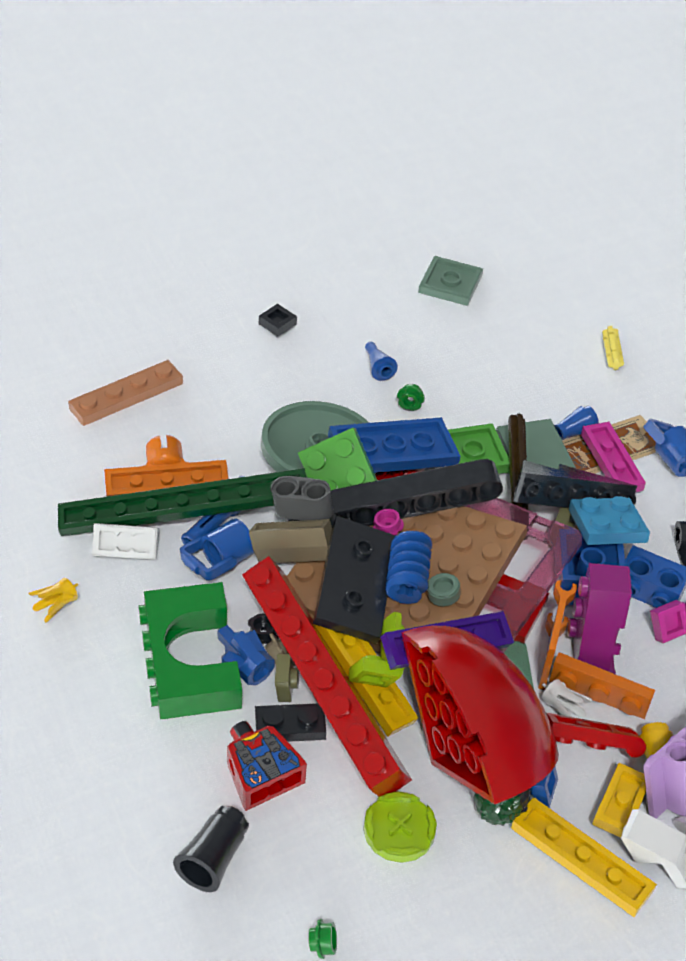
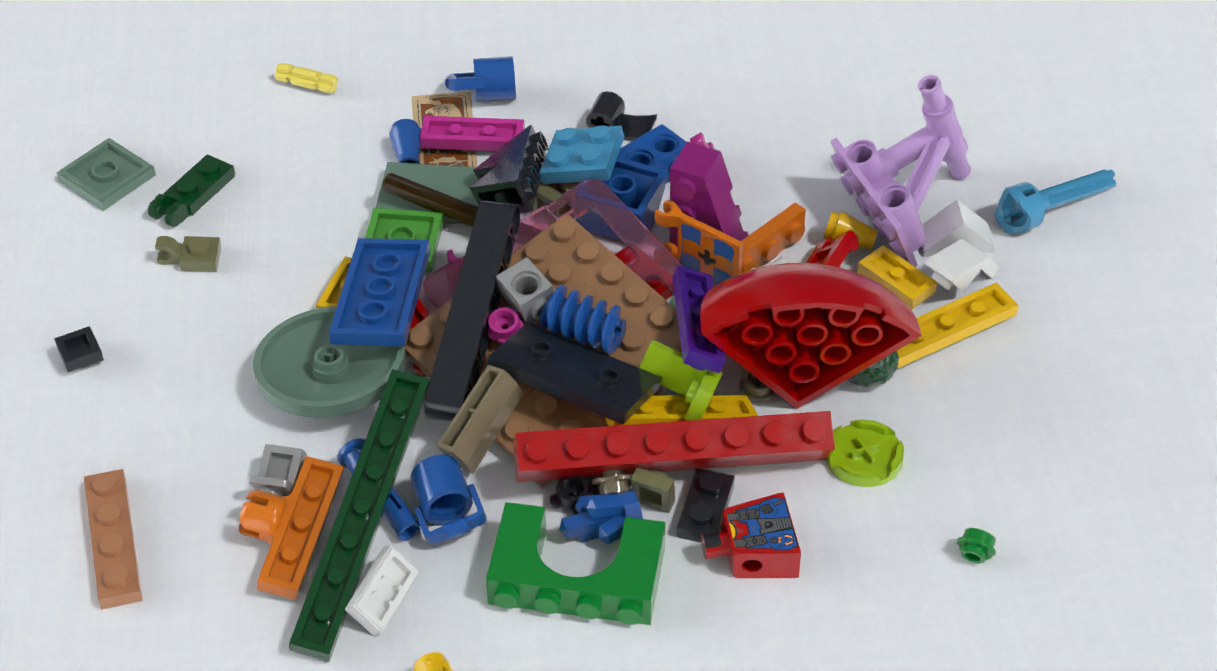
camera: 65 degrees left, 0 degrees up
(211, 450) = (278, 469): none -> light grey bracket
(211, 850) = (851, 606): black plant -> none
(302, 498) = (449, 377): dark grey beam -> none
(338, 461) = (402, 337): bright green plate -> none
(382, 365) = (218, 275): blue cone -> none
(398, 347) = (194, 254): none -> olive plate
(414, 392) = (289, 265): green plate -> none
(423, 516) = (521, 280): none -> light grey brick
(443, 589) = (628, 300): sand green tile -> none
(458, 326) = (192, 190): none -> dark green hinge

